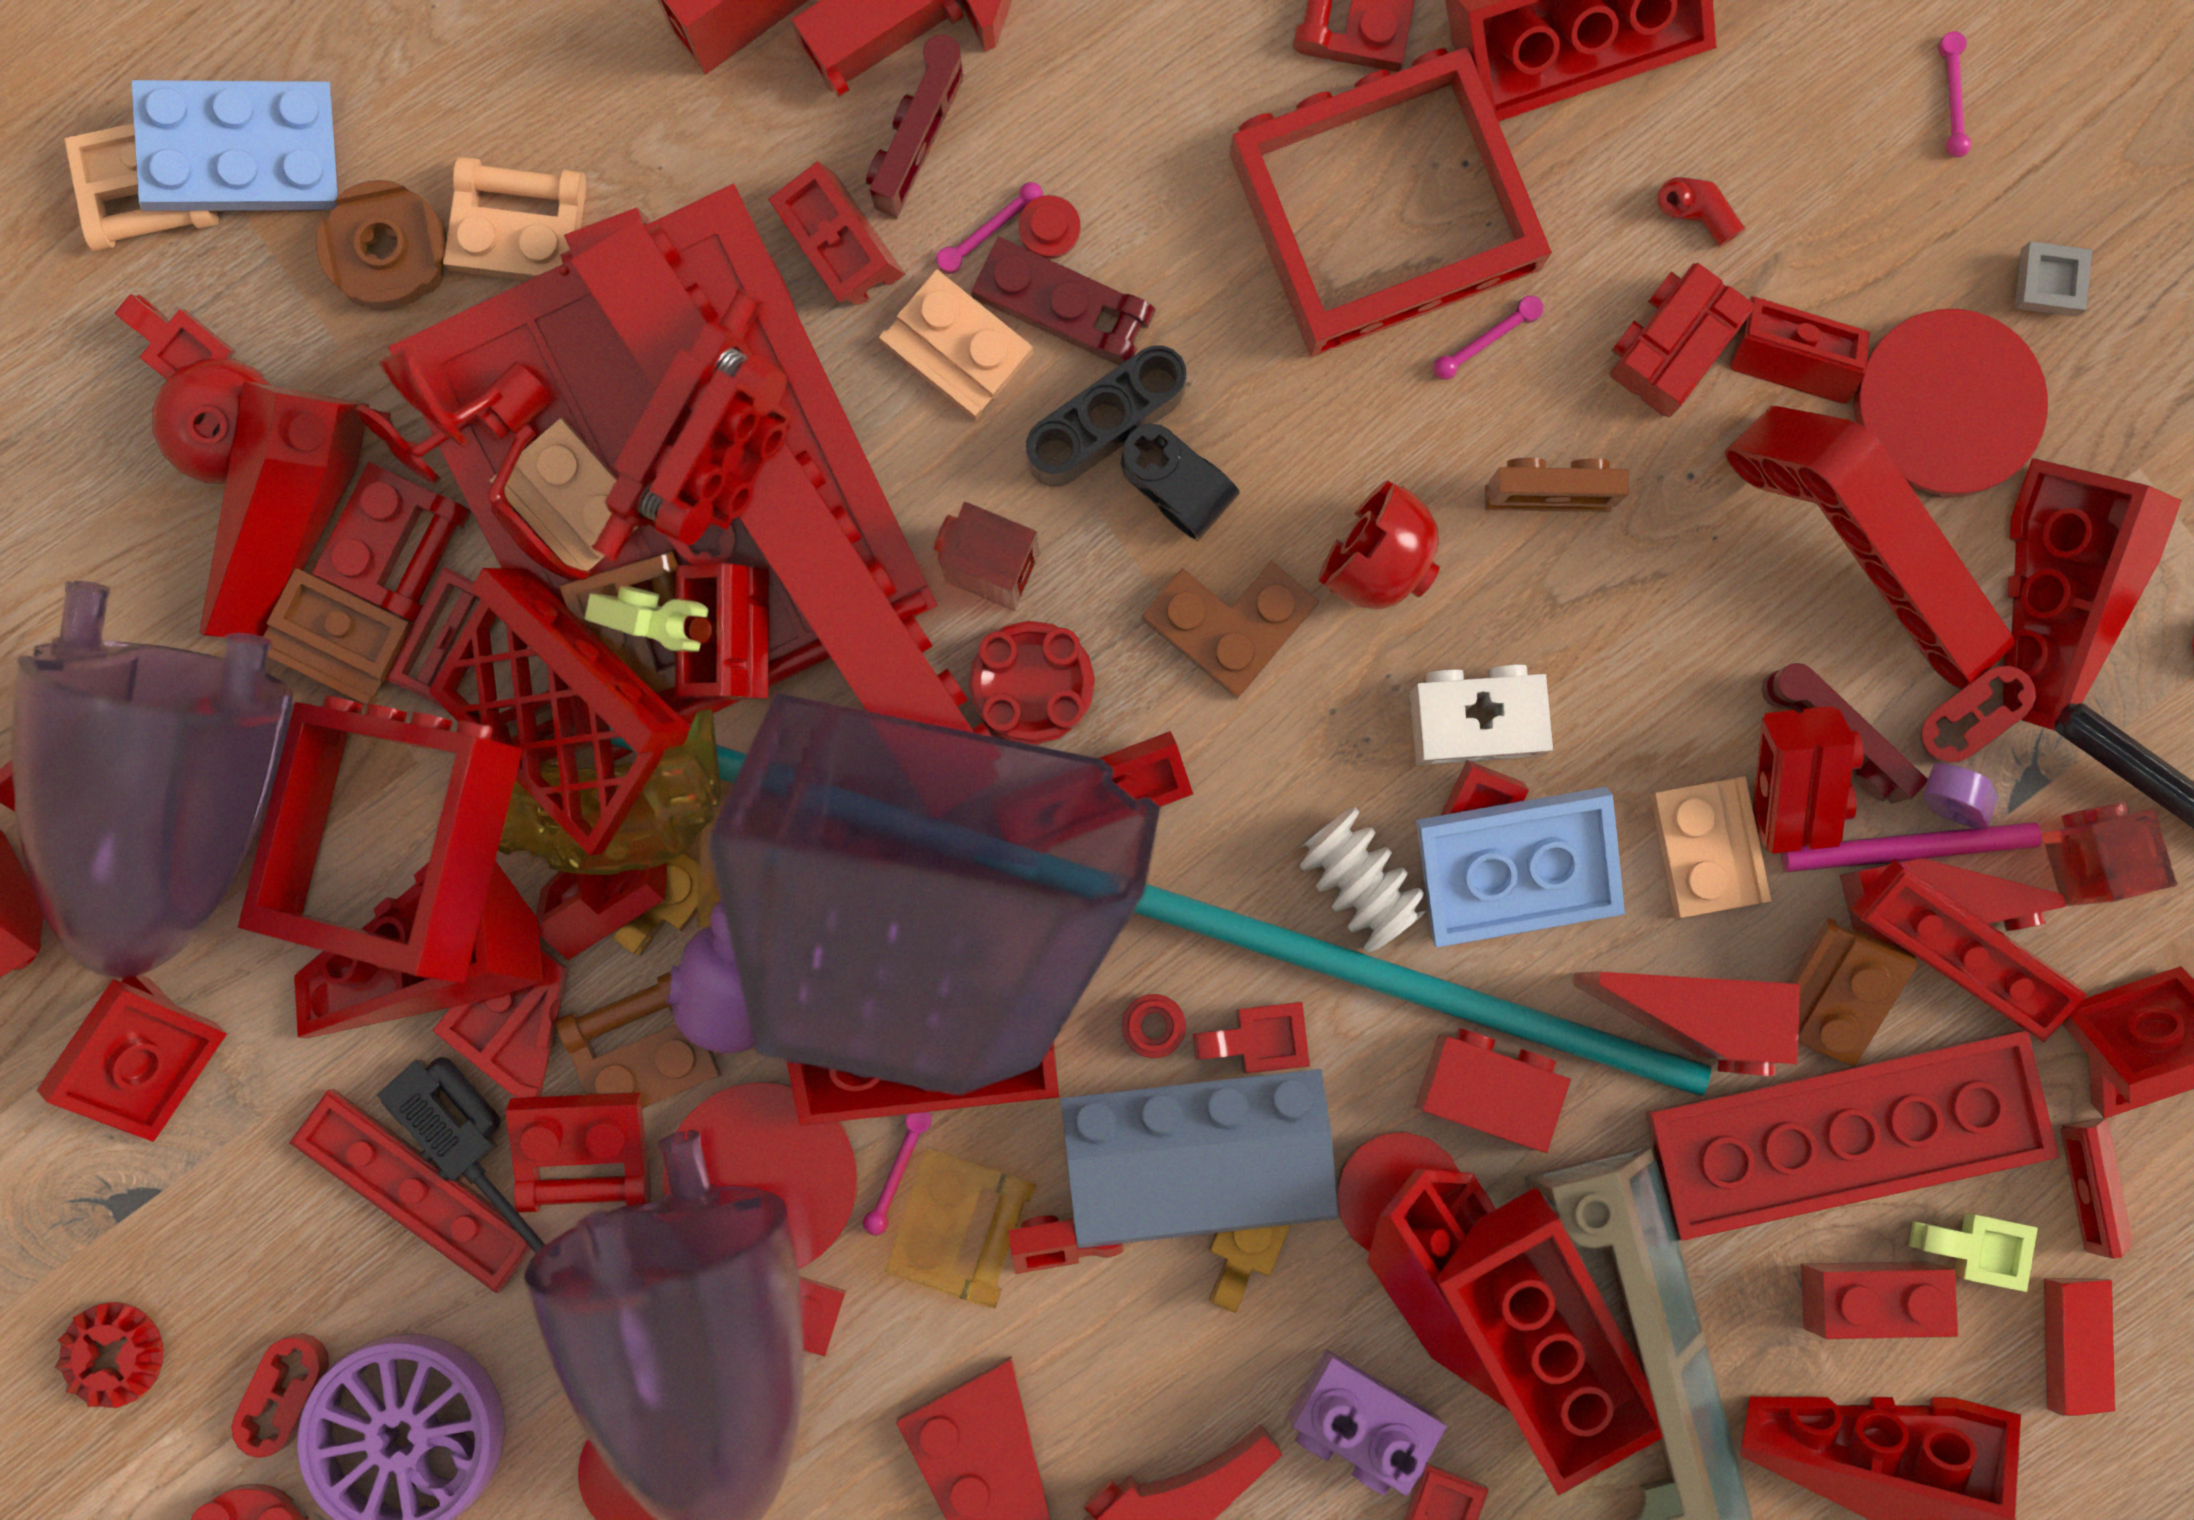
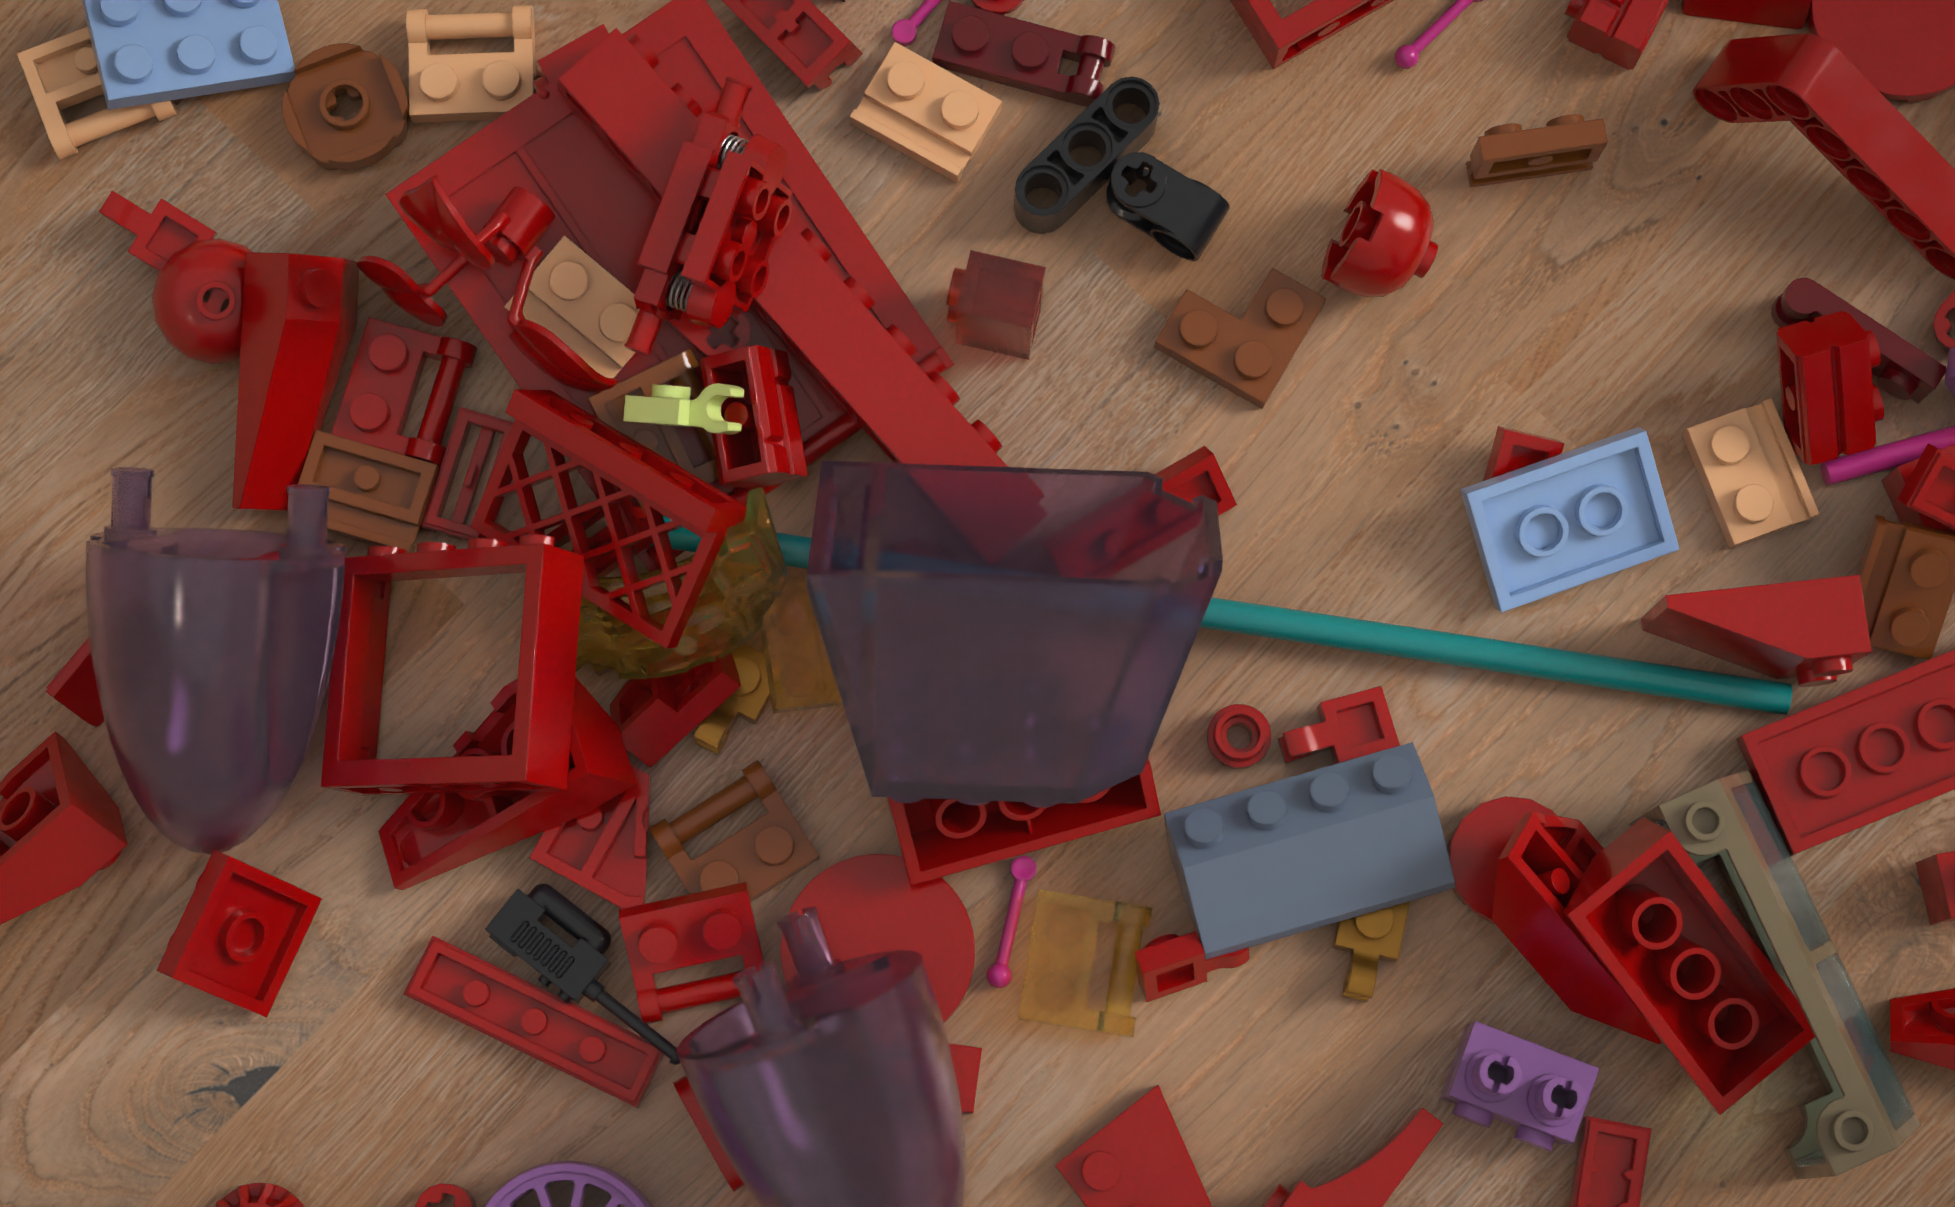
camera: 10 degrees left, 5 degrees down
(709, 993) = (812, 756): medium lavender piece -> none
(1031, 682) = (1059, 419): red dish -> none
(1362, 880) = (1416, 558): white piece -> none
(1492, 1091) = (1583, 740): red brick -> none
(1519, 723) = (1476, 407): white brick -> none

